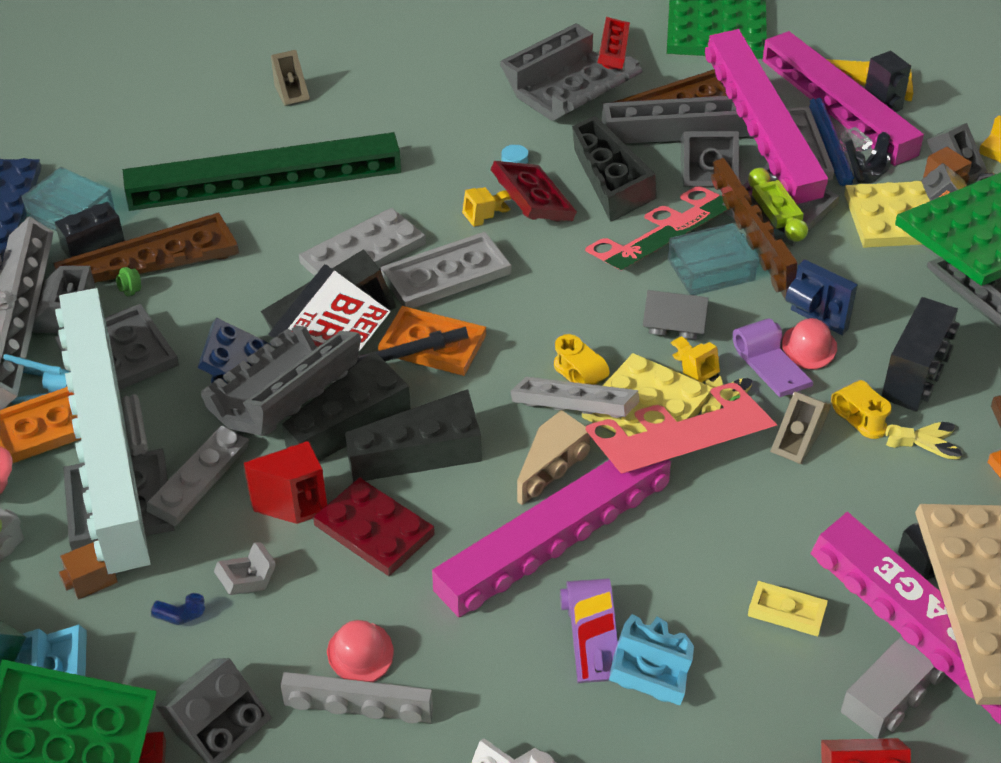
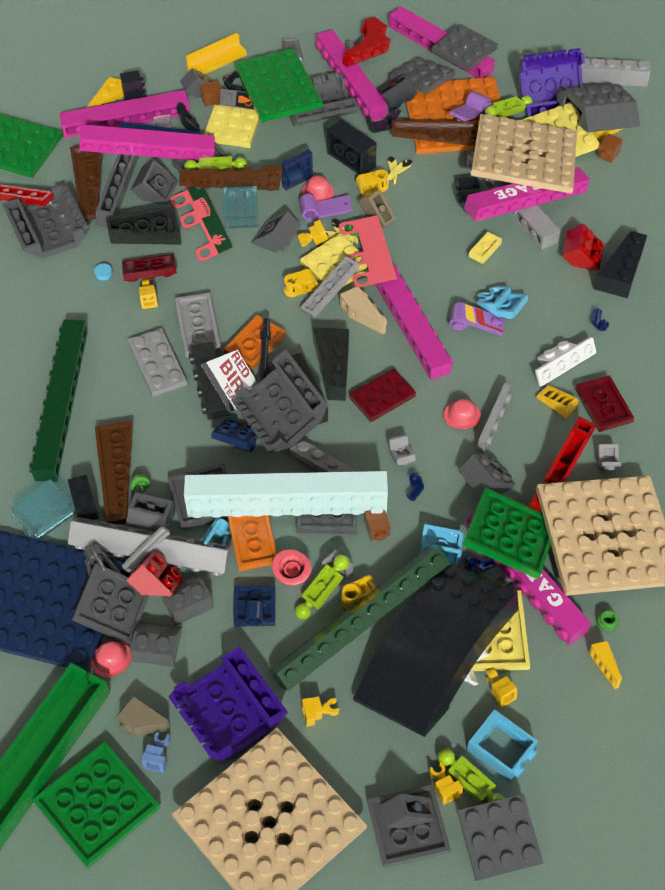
camera: 75 degrees left, 10 degrees up
(287, 484) = (353, 417): red slope -> none

